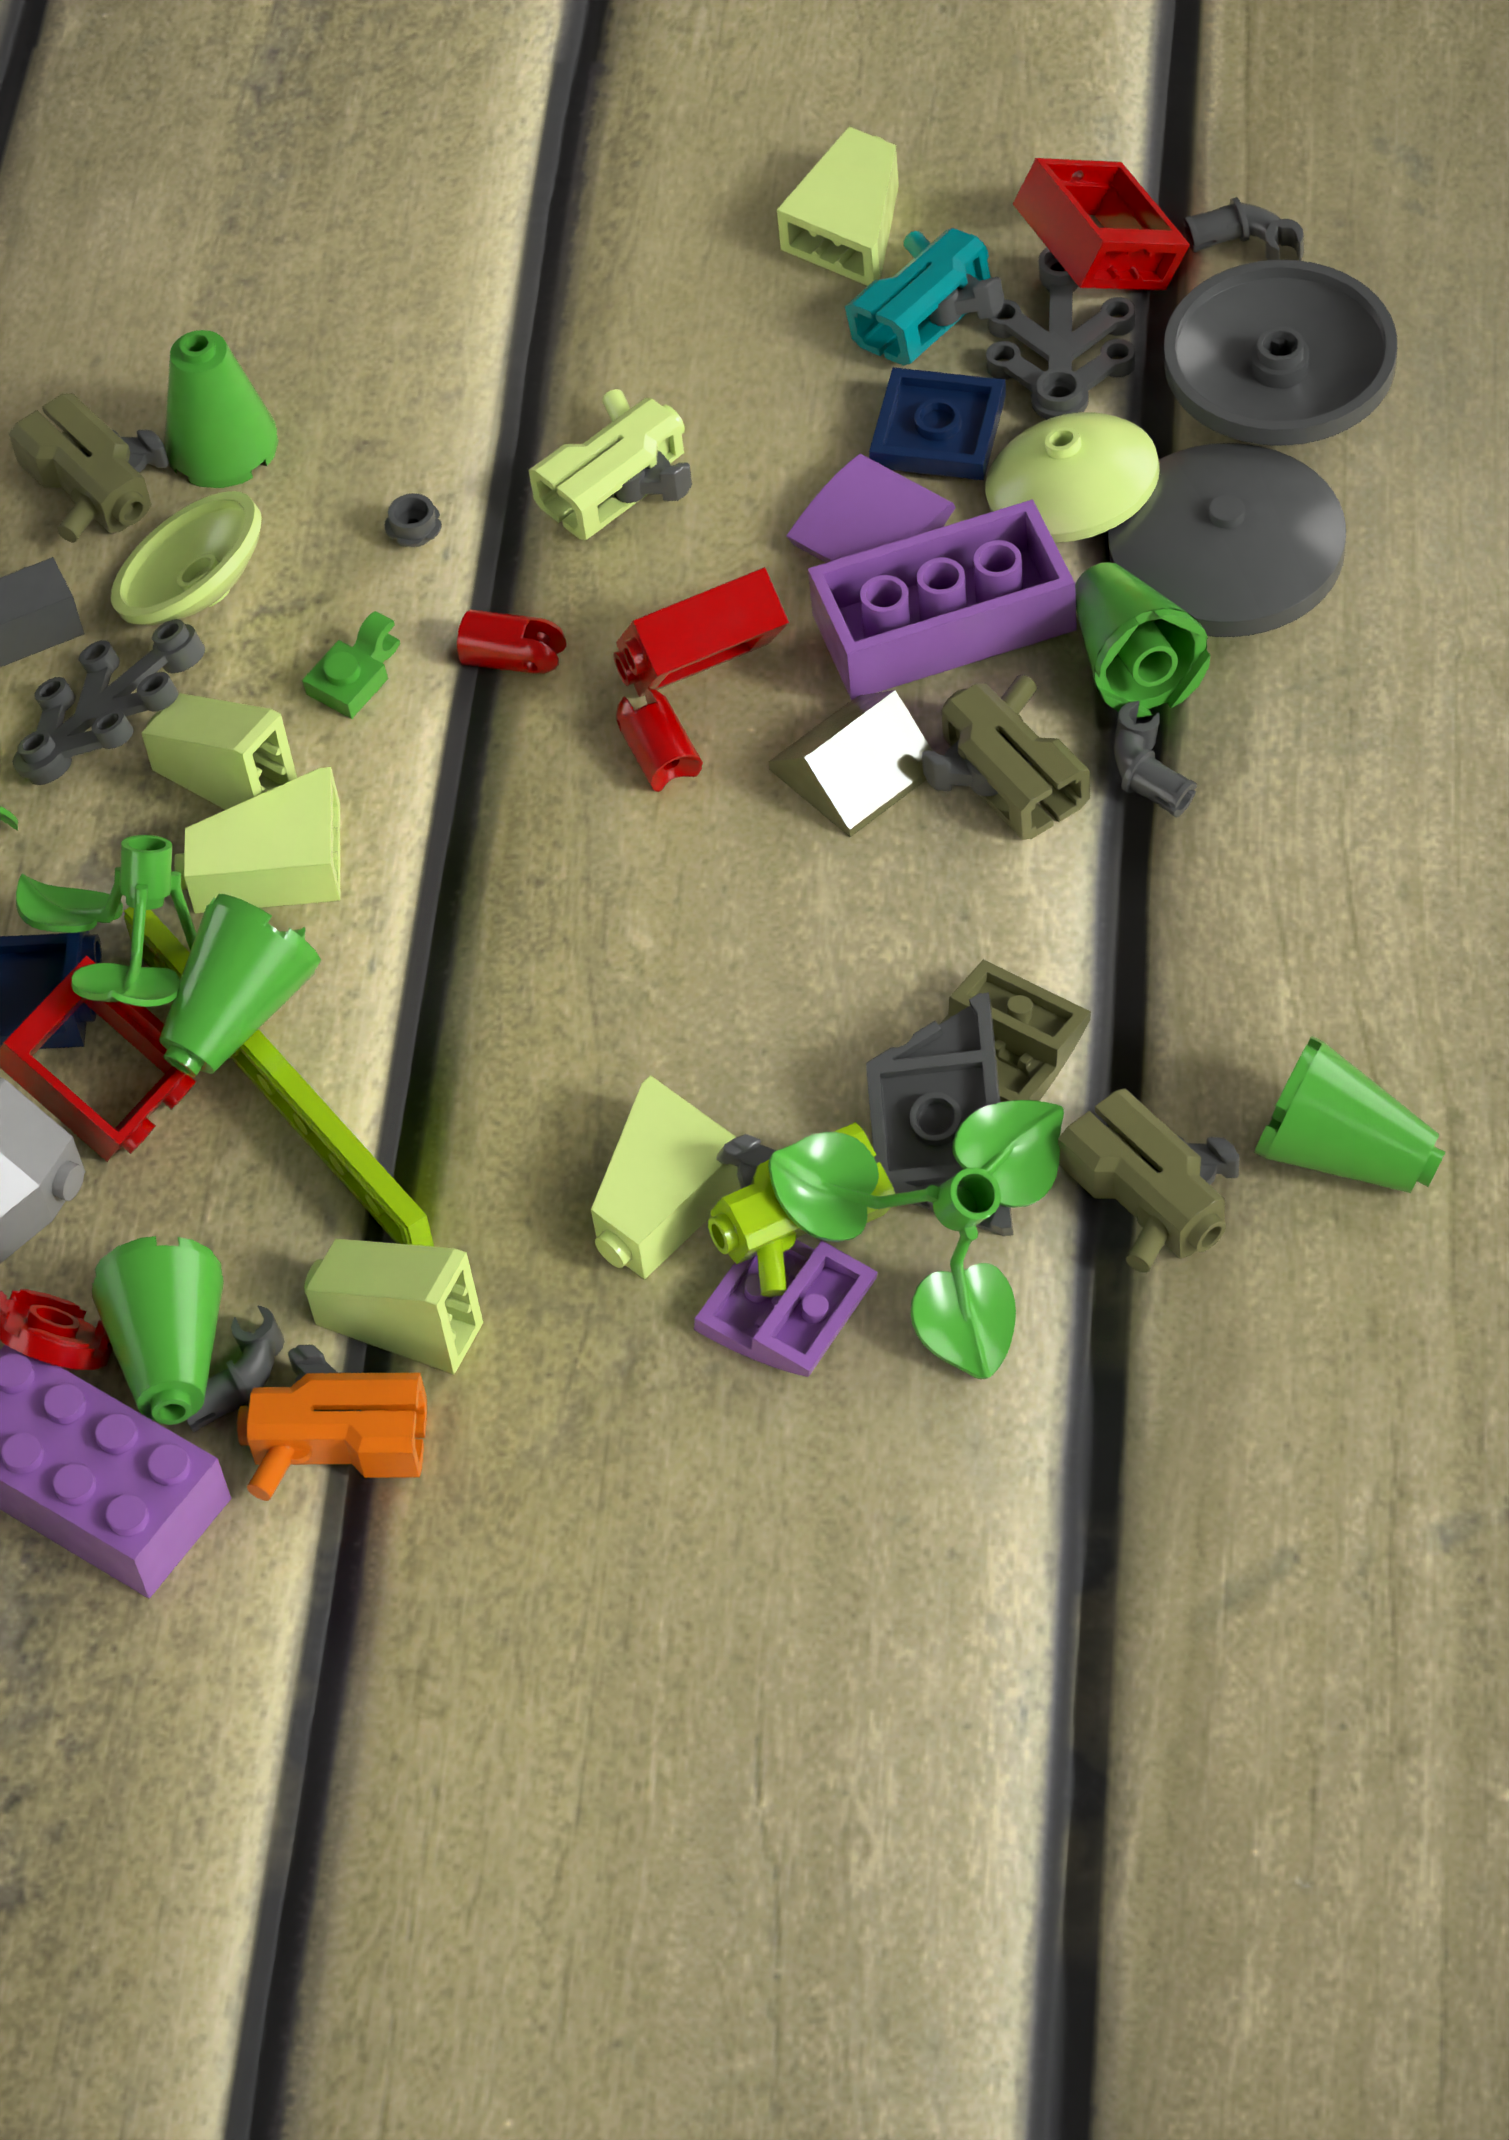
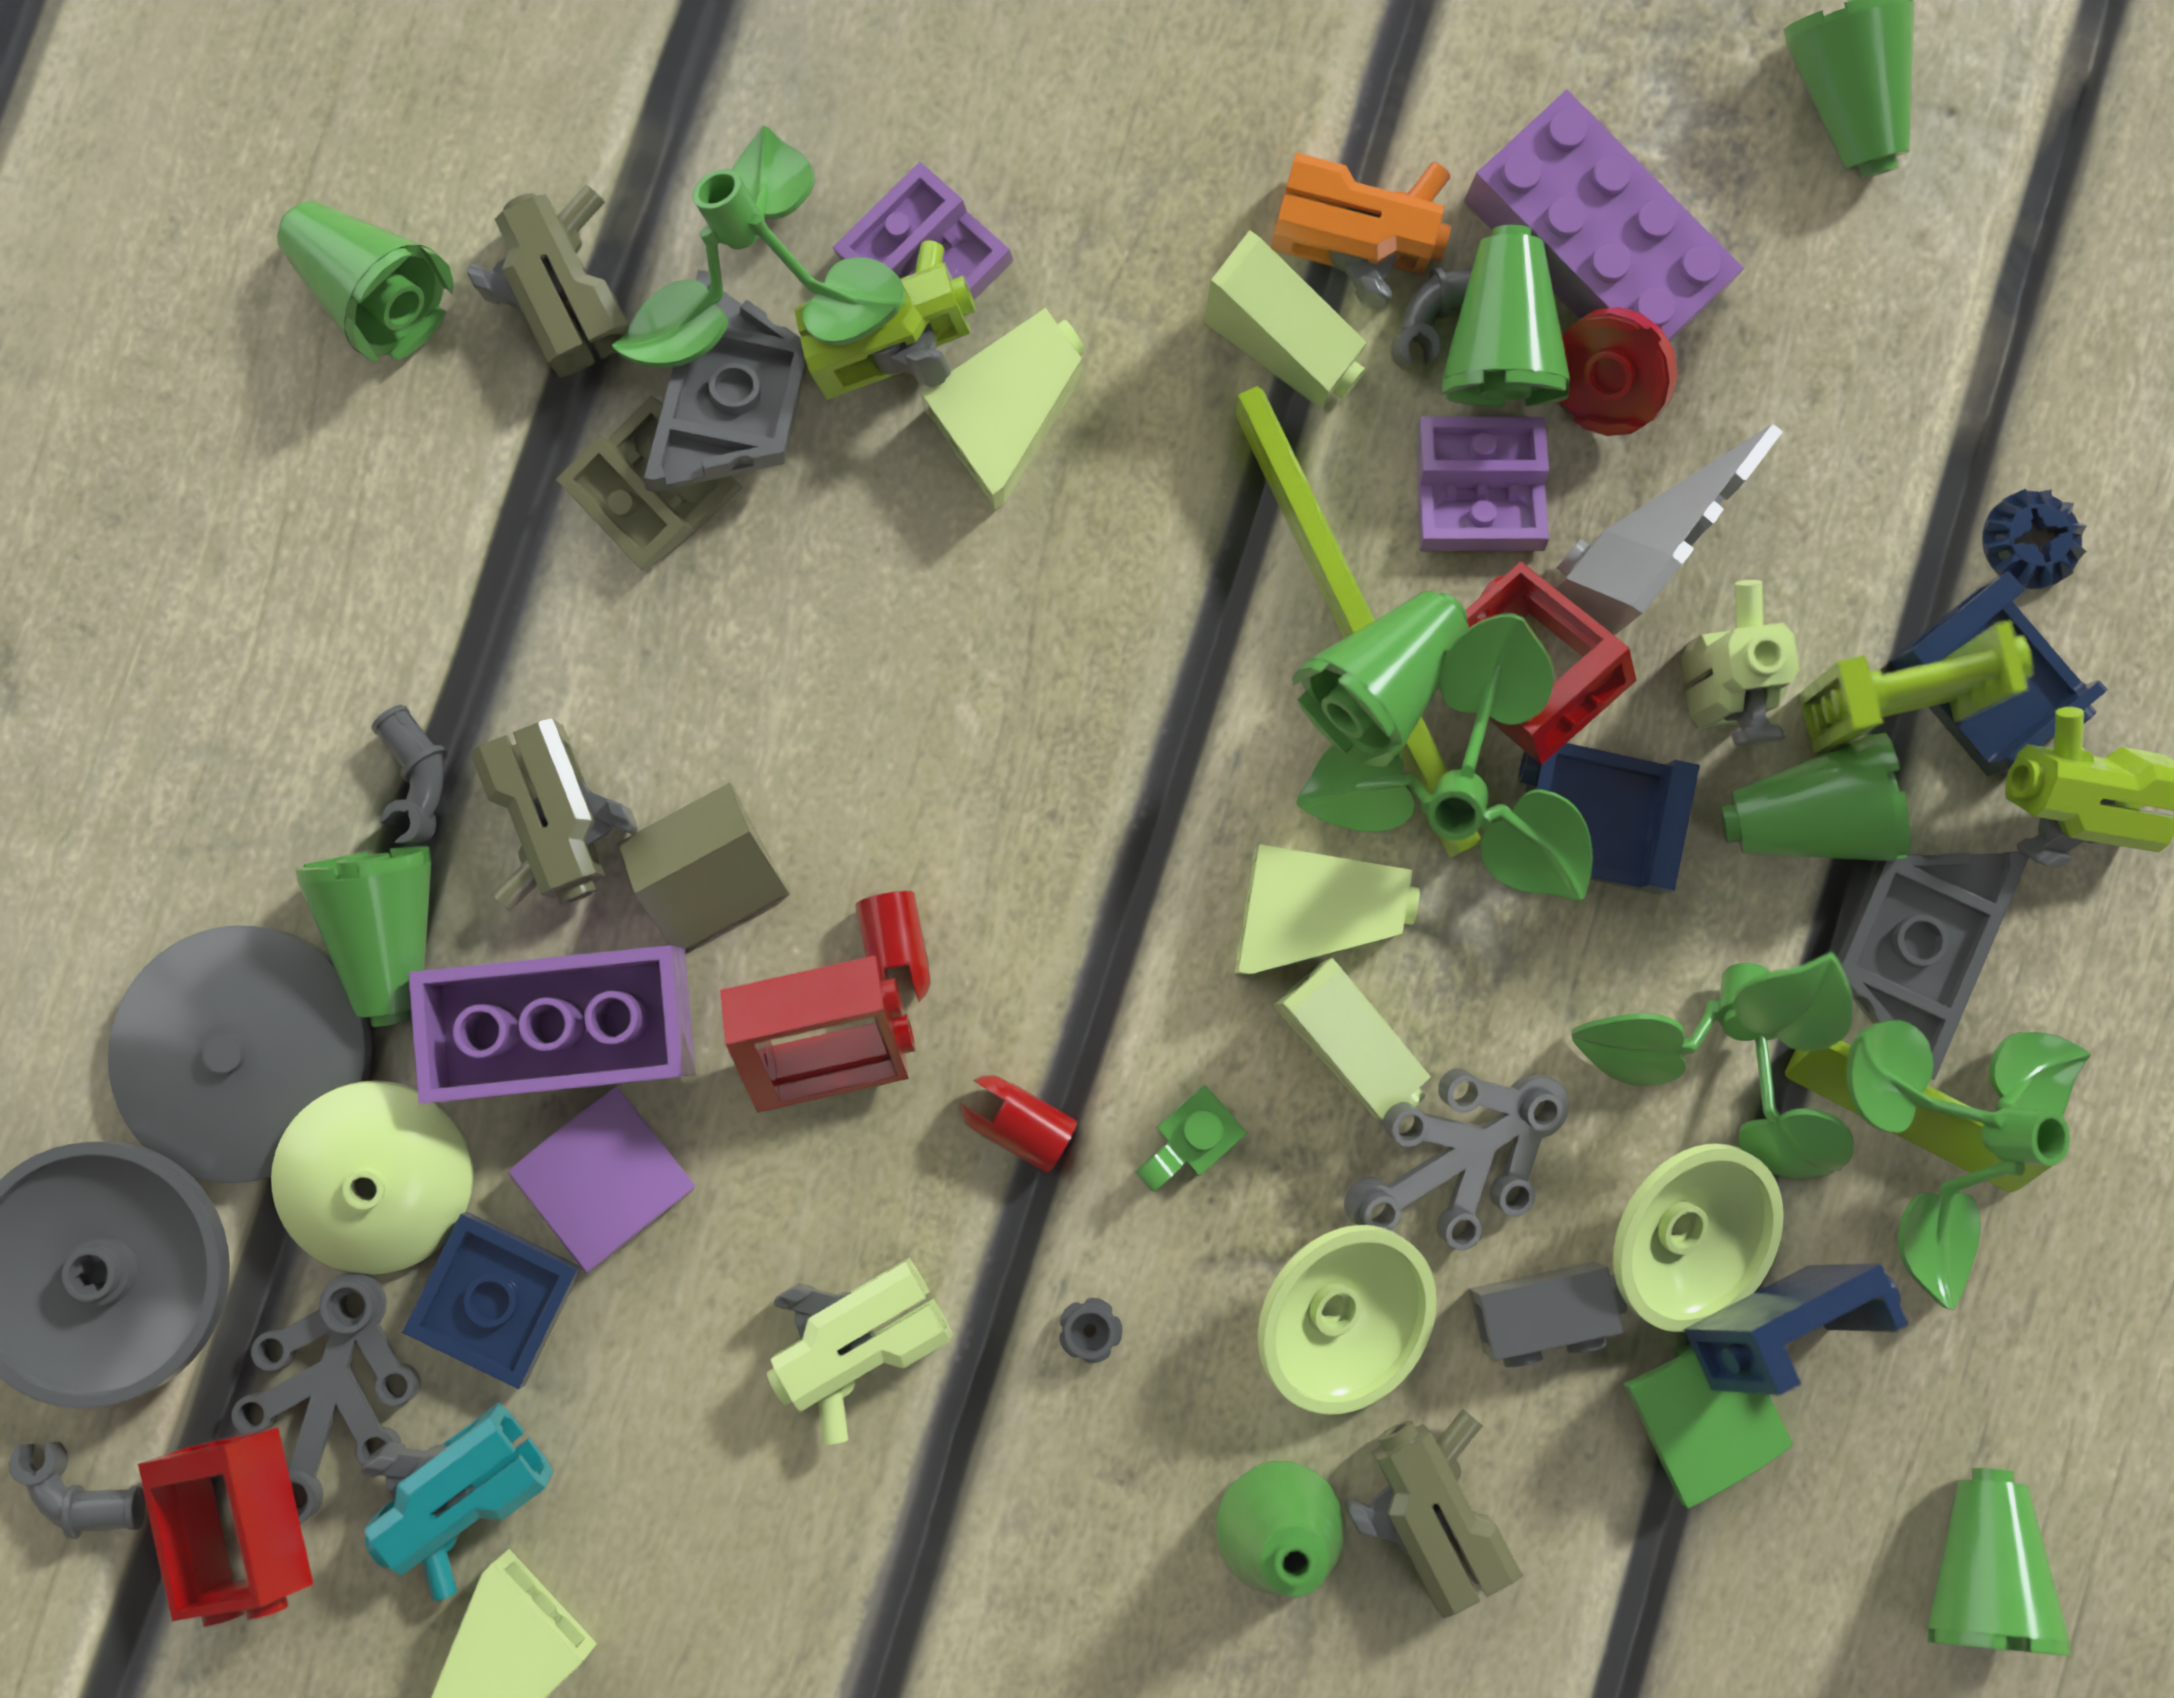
camera: 175 degrees left, 30 degrees up
(174, 1205) = (1482, 484): none -> medium lavender slope

